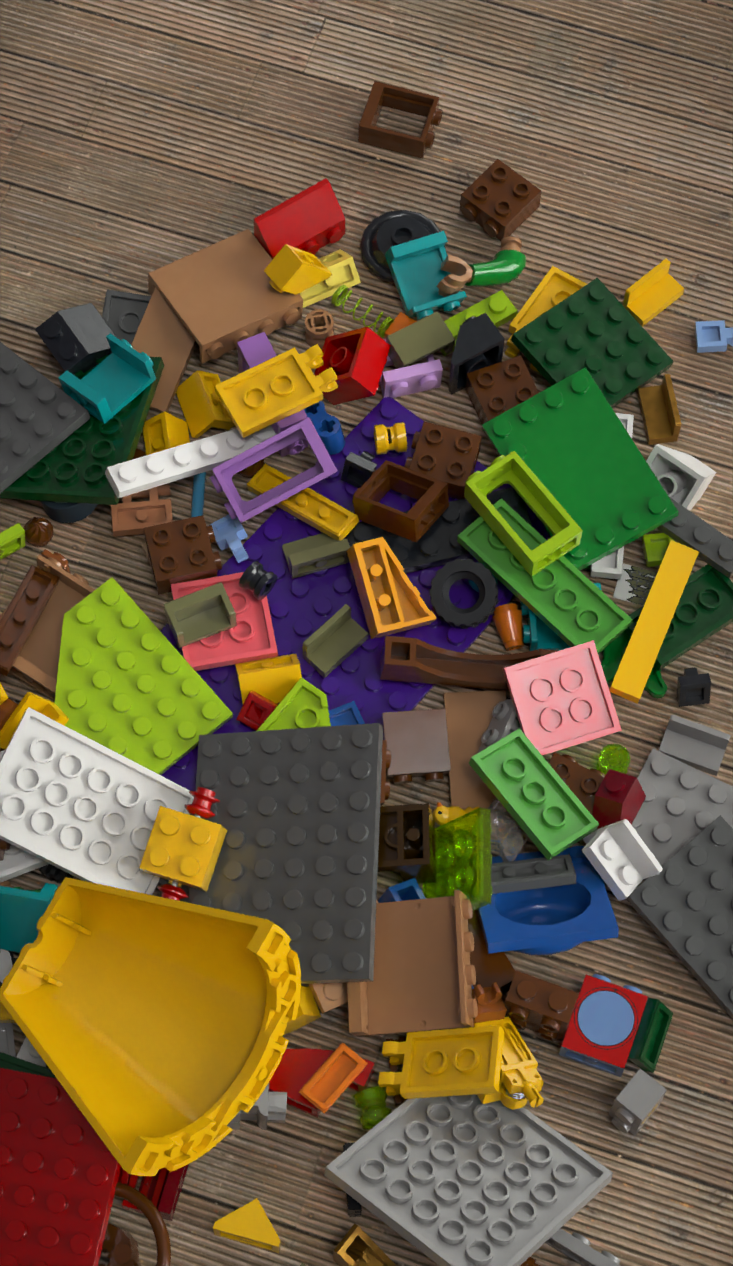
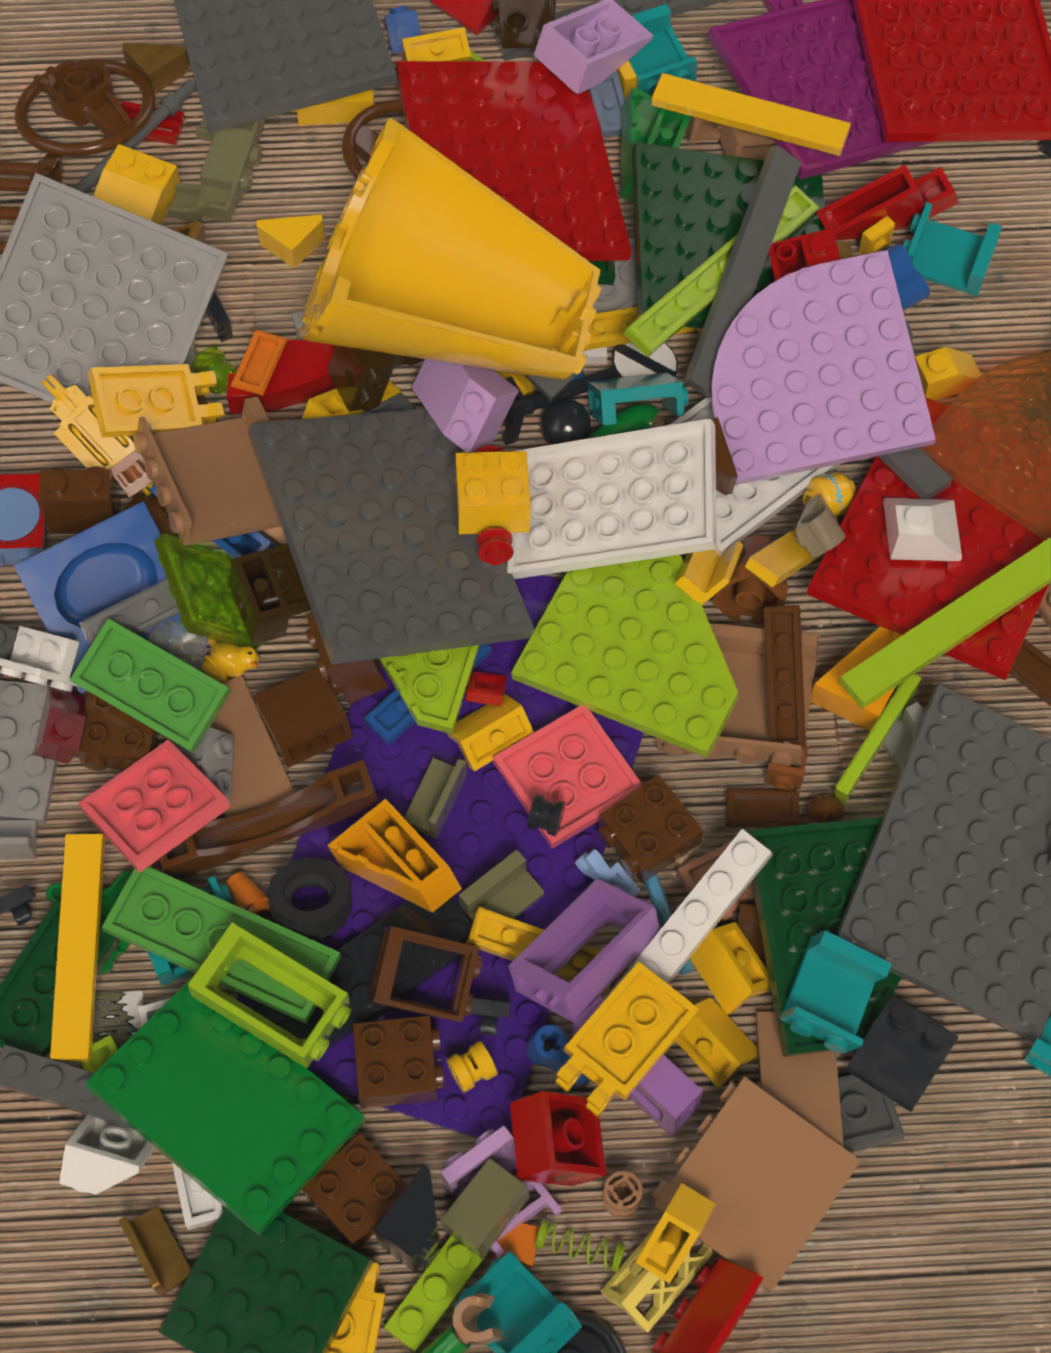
camera: 160 degrees right, 0 degrees up
(86, 554) = (761, 808): none -> reddish brown tile
(200, 614) = (593, 754): olive panel -> none
(616, 752) = (83, 787): clear neon green wheel -> none

